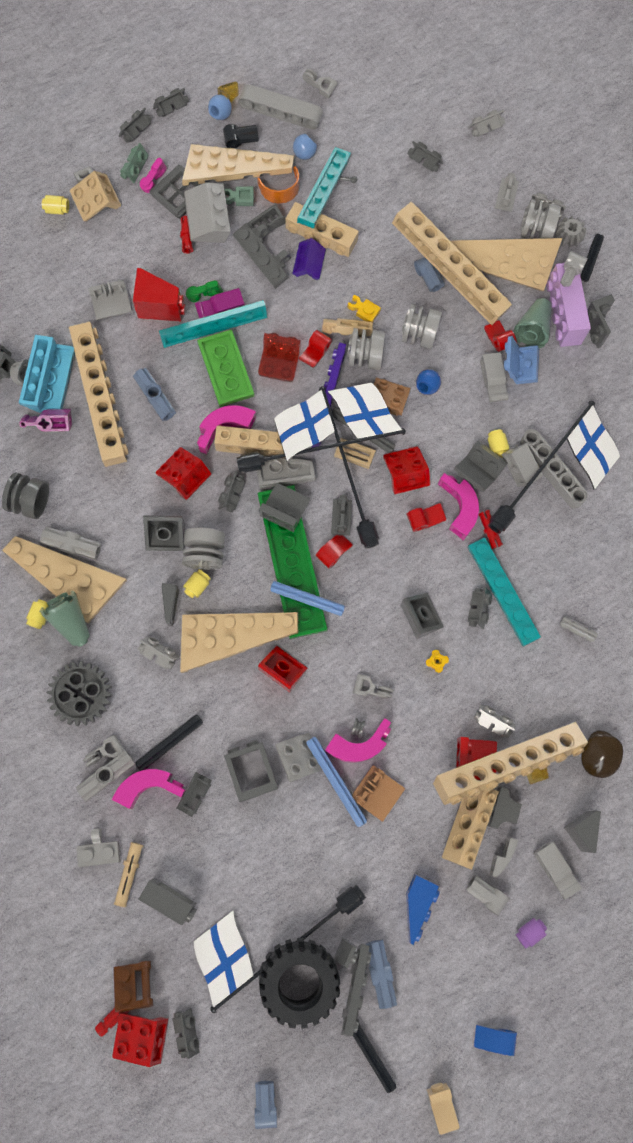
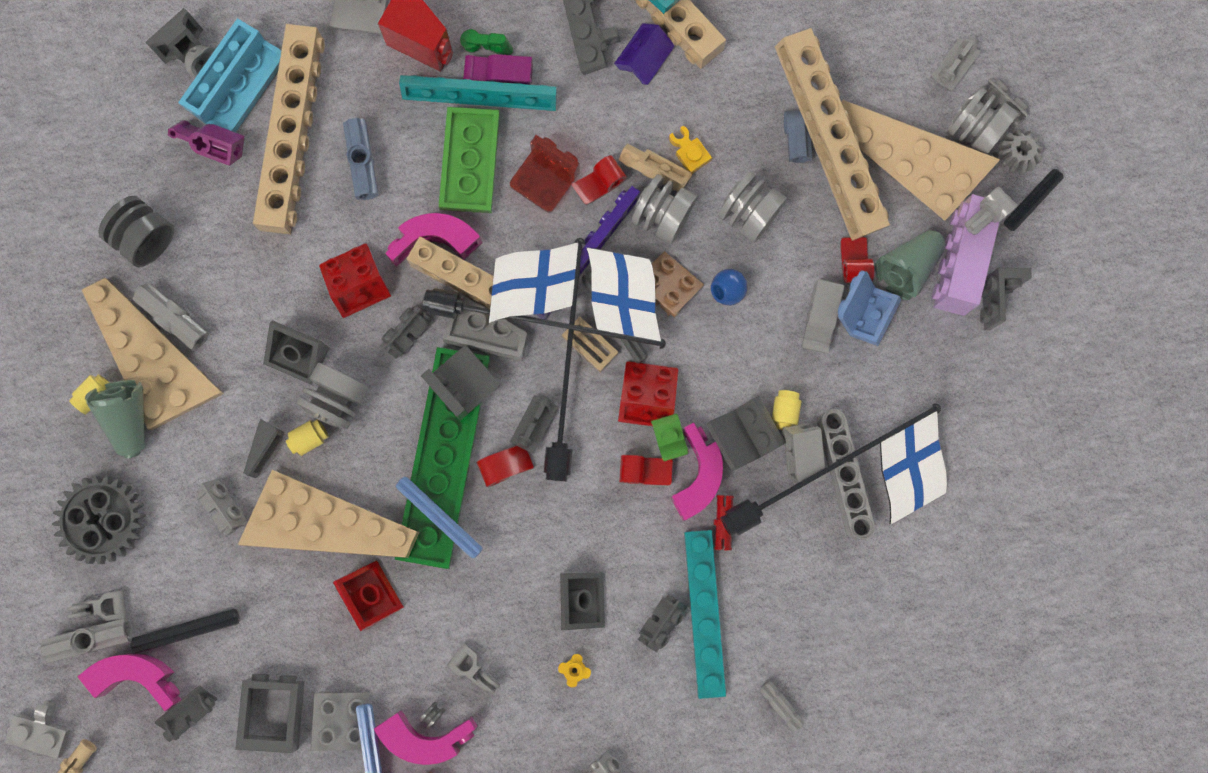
camera: 25 degrees right, 5 degrees up
(432, 489) = (670, 437): none -> bright green bracket

